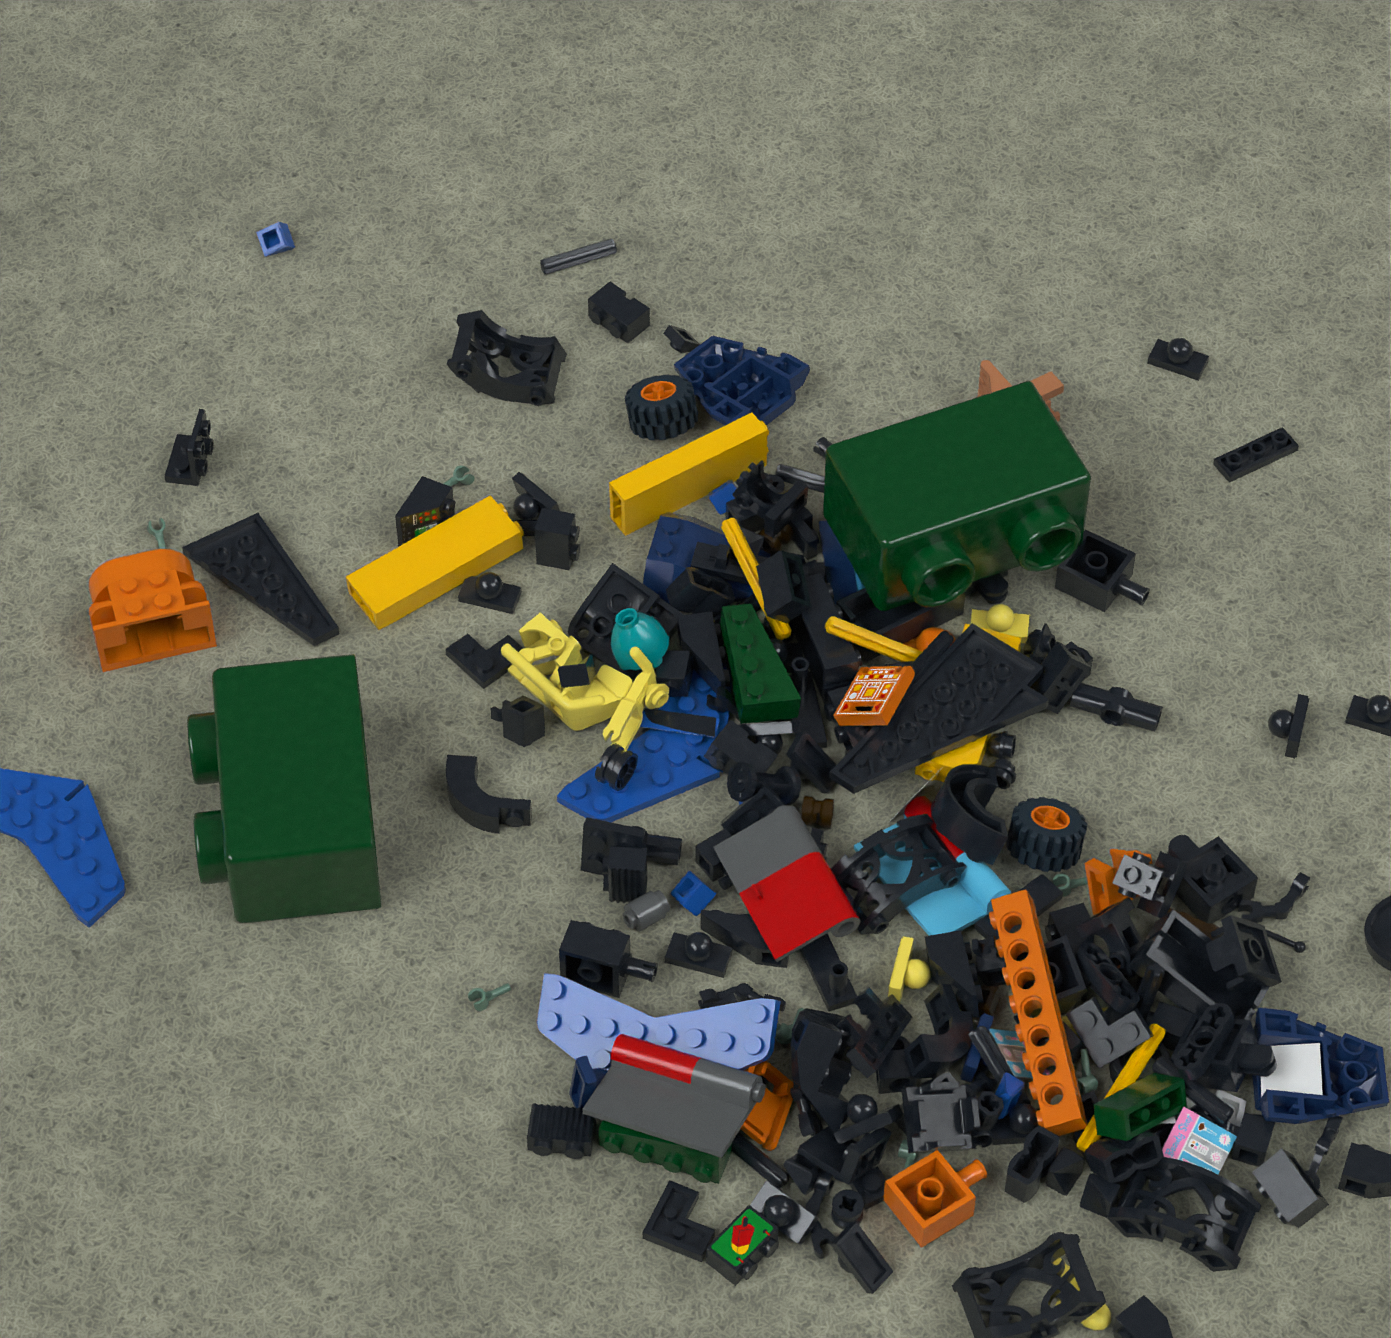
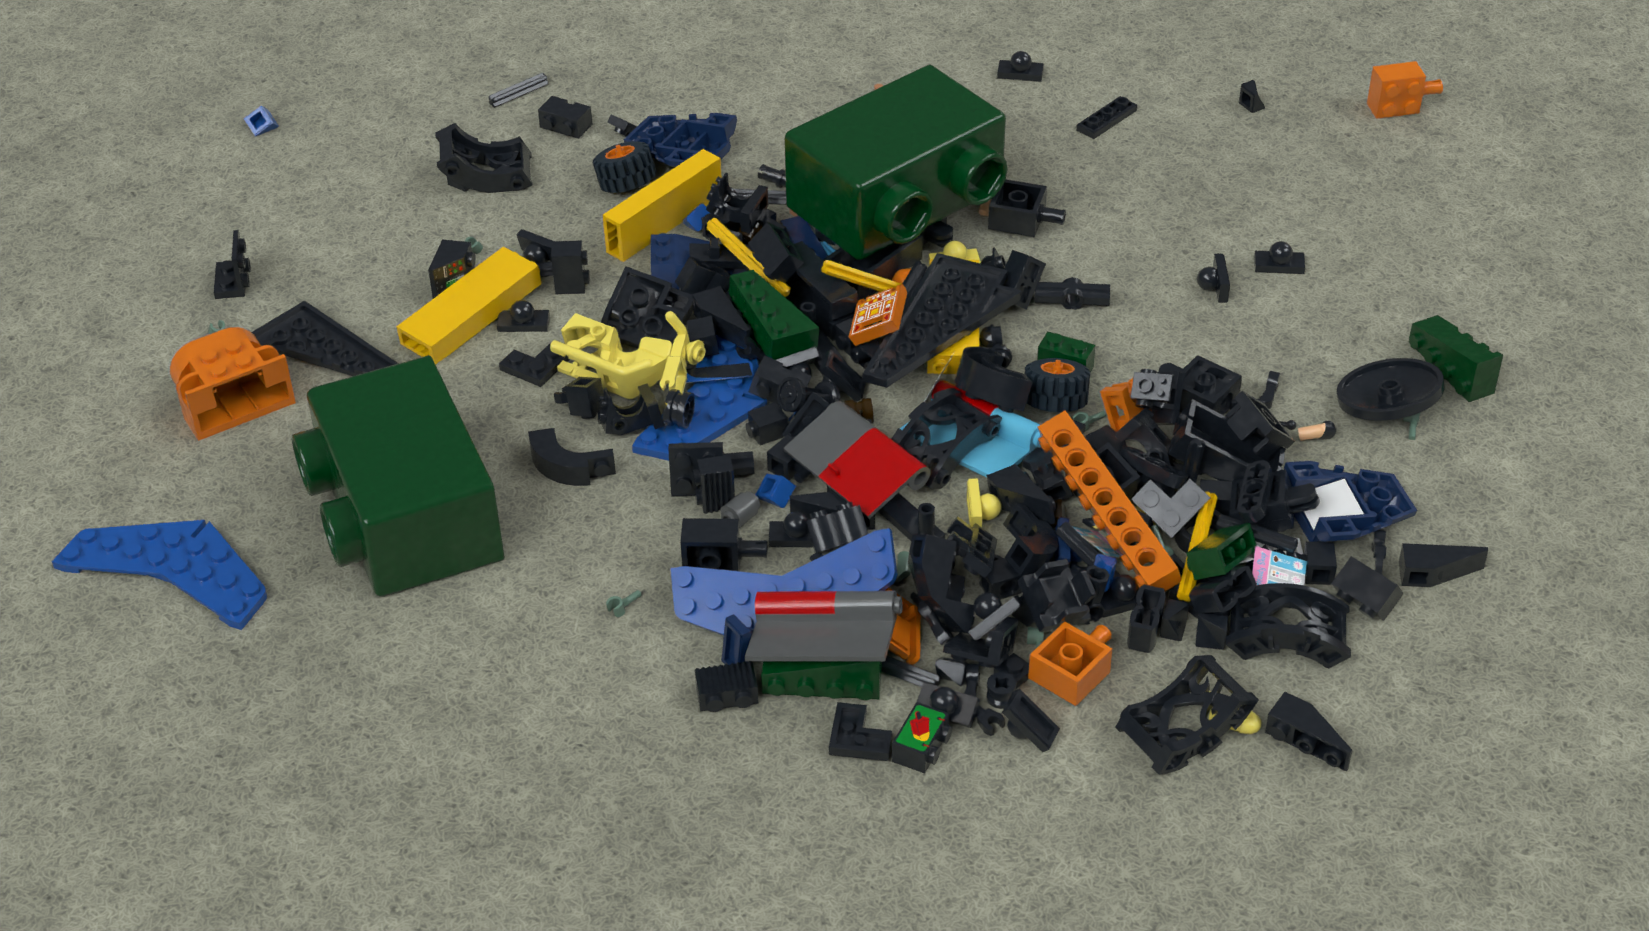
camera: 15 degrees left, 10 degrees down
(565, 759) = (629, 418): none -> black tile
(577, 674) = (623, 343): black slope -> none
(639, 631) = (656, 305): teal piece -> none
(710, 803) = (766, 423): none -> black brick
(738, 965) = (836, 528): none -> black brick
(1077, 790) = (1063, 347): none -> dark green brick
(1333, 966) = (1319, 431): none -> light nougat arm

